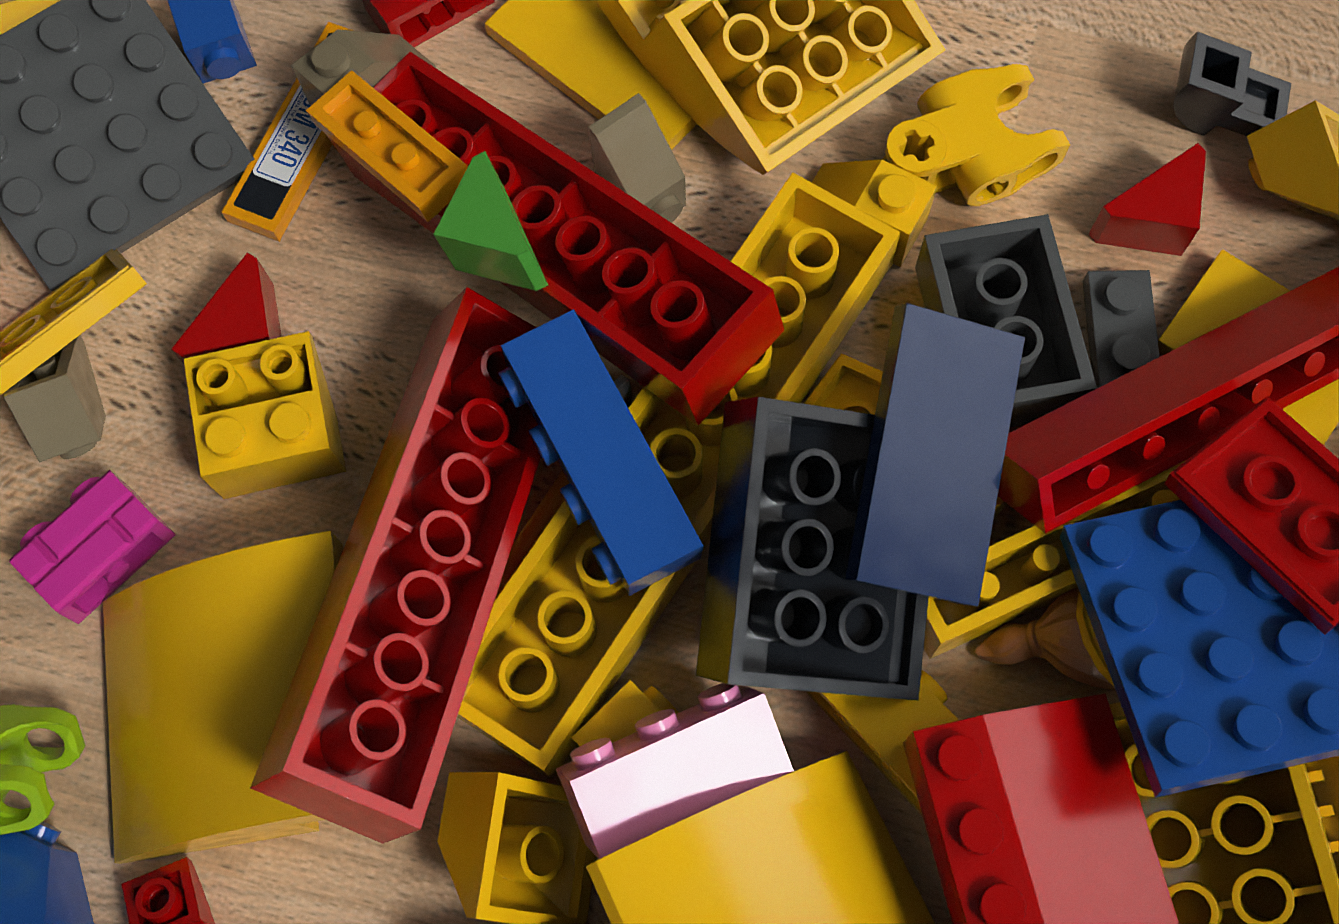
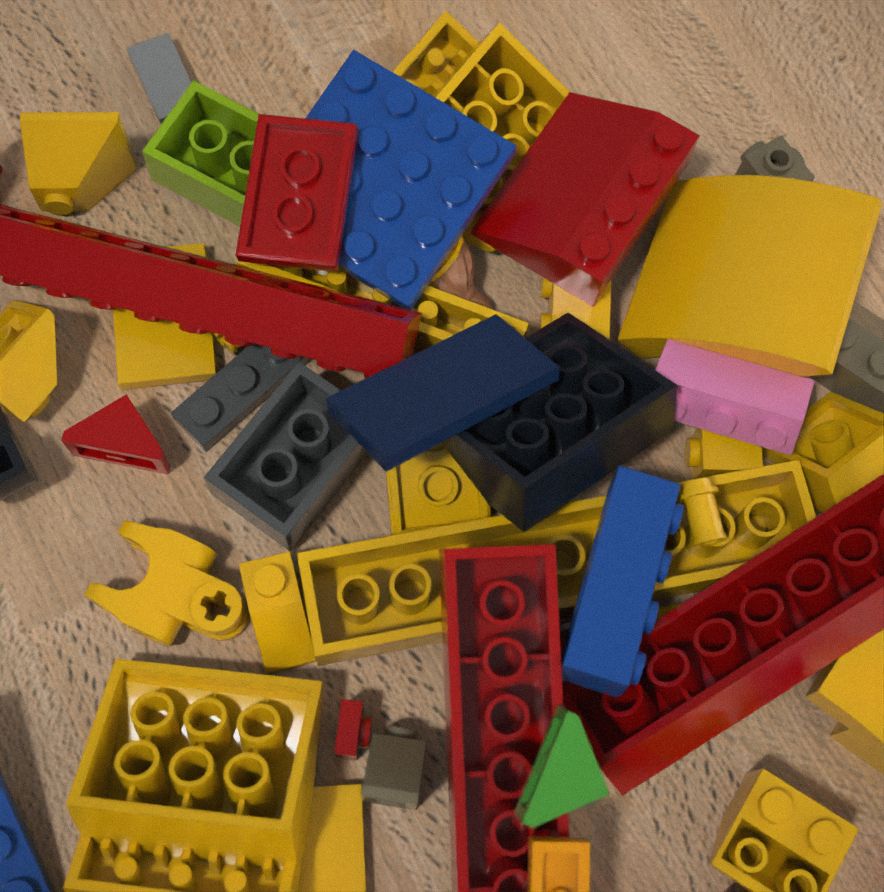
camera: 145 degrees left, 0 degrees up
(586, 605) = (702, 511): none -> yellow pin
(708, 177) = (352, 730): none -> red plate

